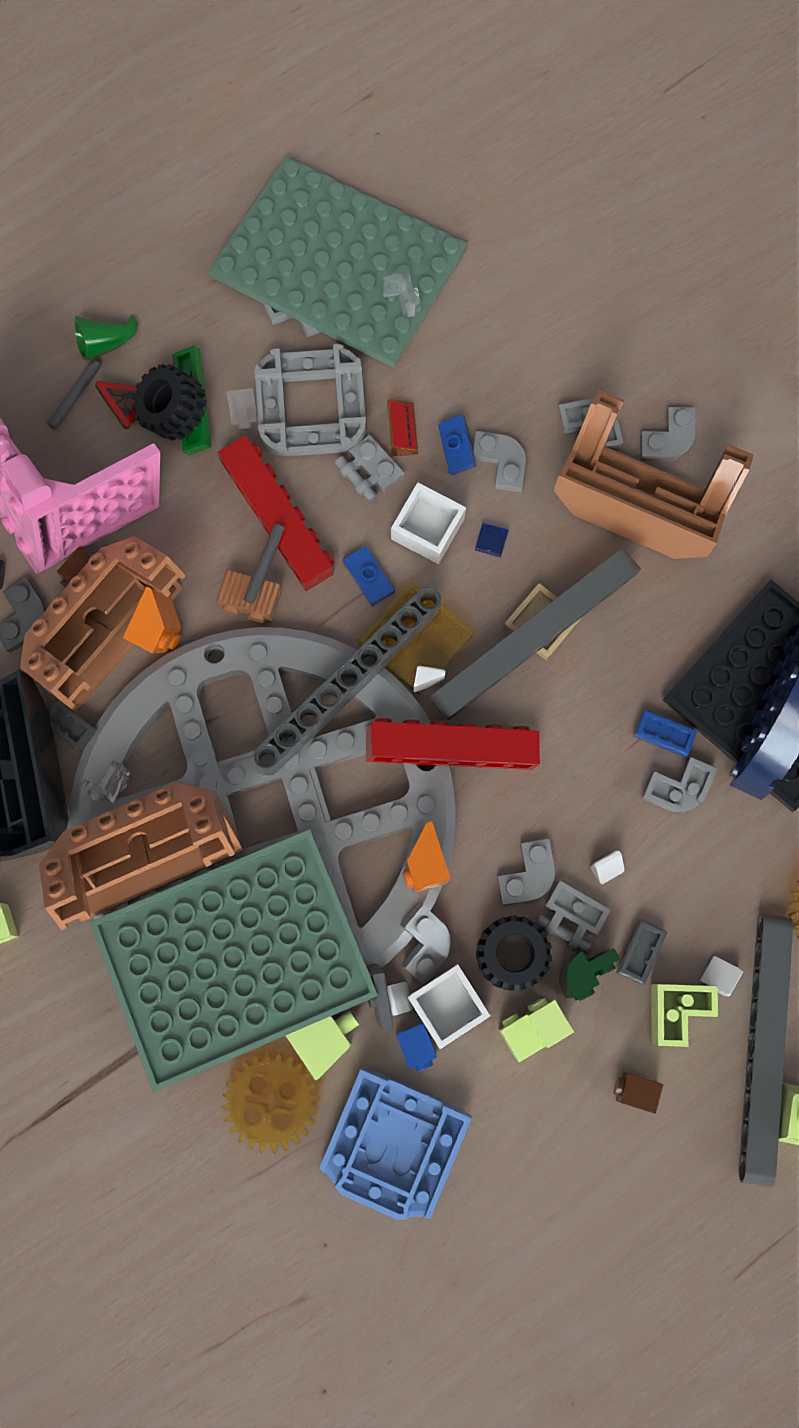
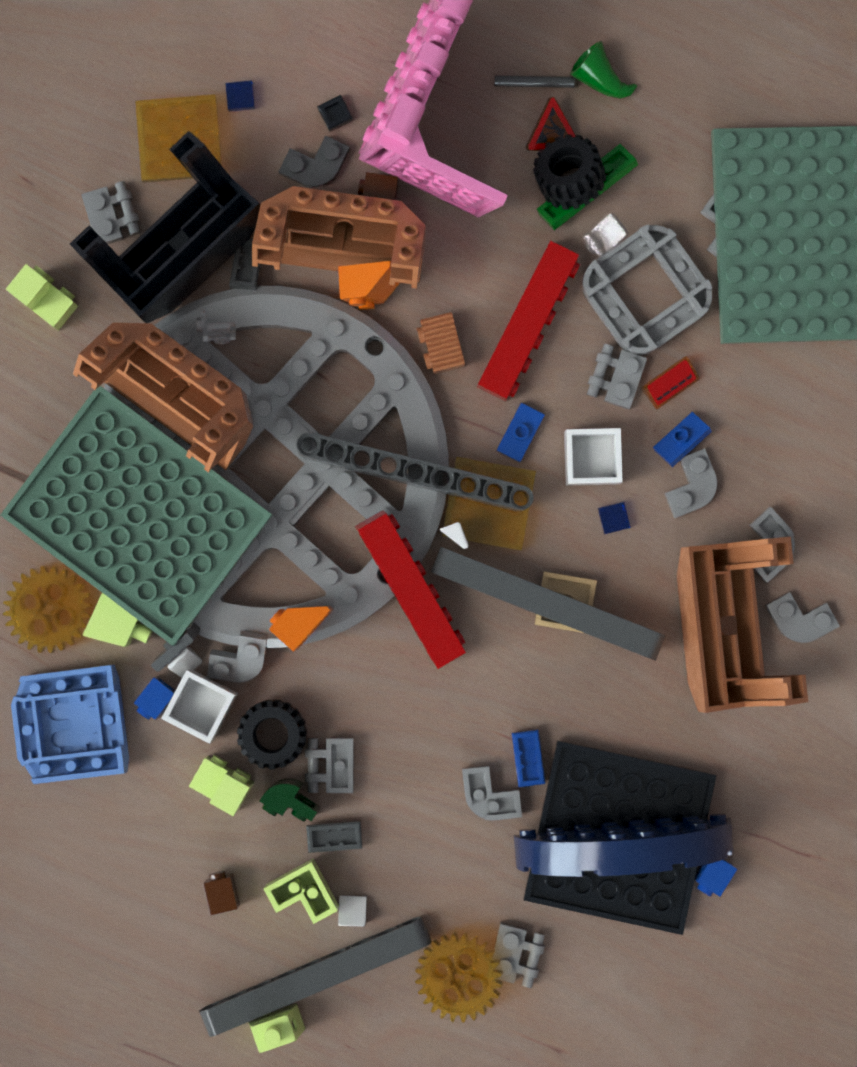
camera: 60 degrees right, 10 degrees up
(264, 564) = (473, 341): dark grey bar -> none
(401, 285) = (789, 319): clear bracket -> none
(535, 880) = (344, 718): light grey plate -> none
(608, 867) = (388, 771): white slope -> none

